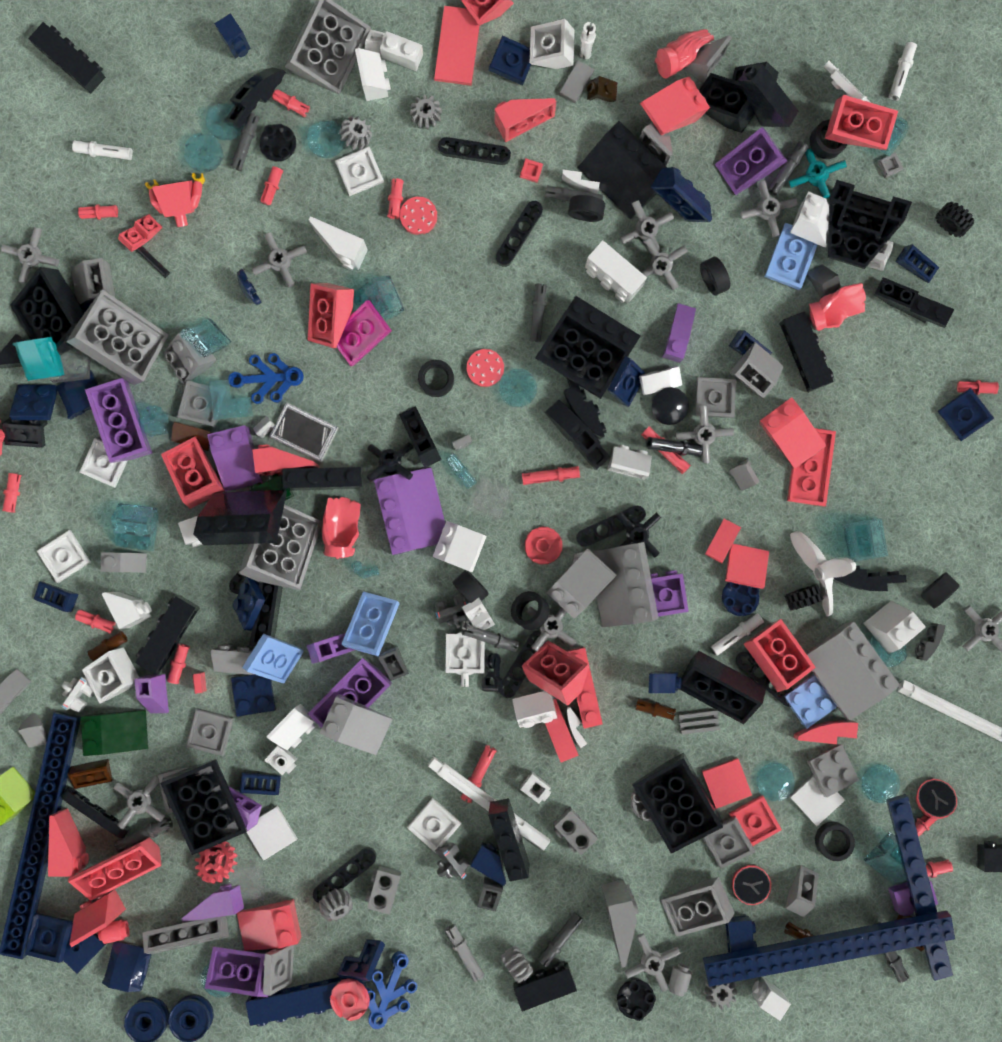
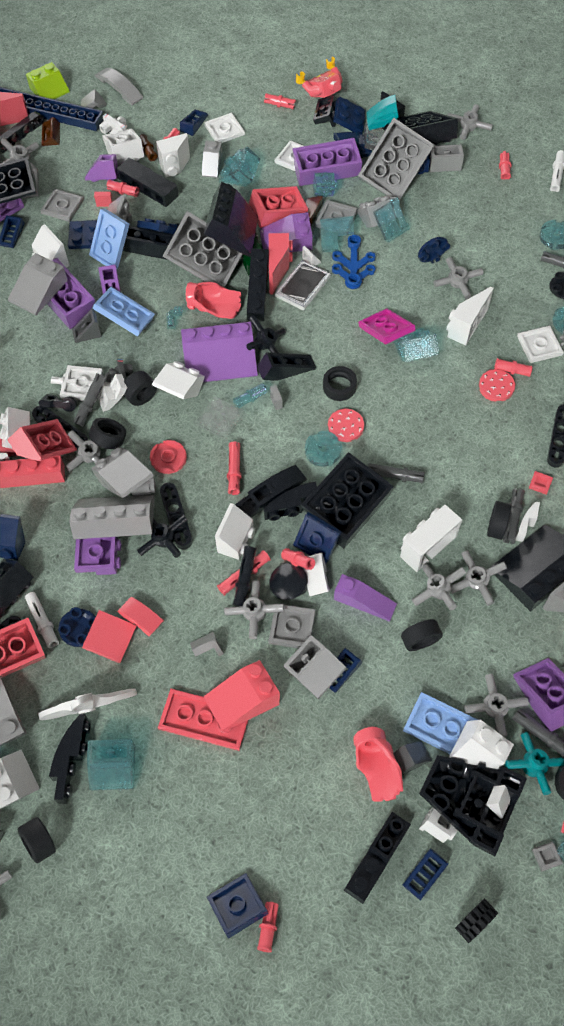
camera: 100 degrees right, 25 degrees down
(114, 732) = (78, 145): dark green slope -> none
(141, 233) = (487, 191): coral slope -> none
(157, 265) = (466, 194): black bar -> none
(176, 198) = (515, 212): coral torso -> none
(271, 185) = (526, 278): coral axle -> none
(289, 758) = (23, 246): white brick -> none
(328, 312) = (411, 306): coral slope -> none
(518, 233) = (478, 463): black beam -> none
(603, 323) = (376, 524): black brick -> none
(650, 398) = (298, 558): none -> coral pin
(682, 195) = (510, 608): dark blue slope -> none
(804, 597) = (62, 684): black tyre -> none
(806, 351) = (330, 726): black brick -> none
(858, 203) = (499, 800): none -> white slope

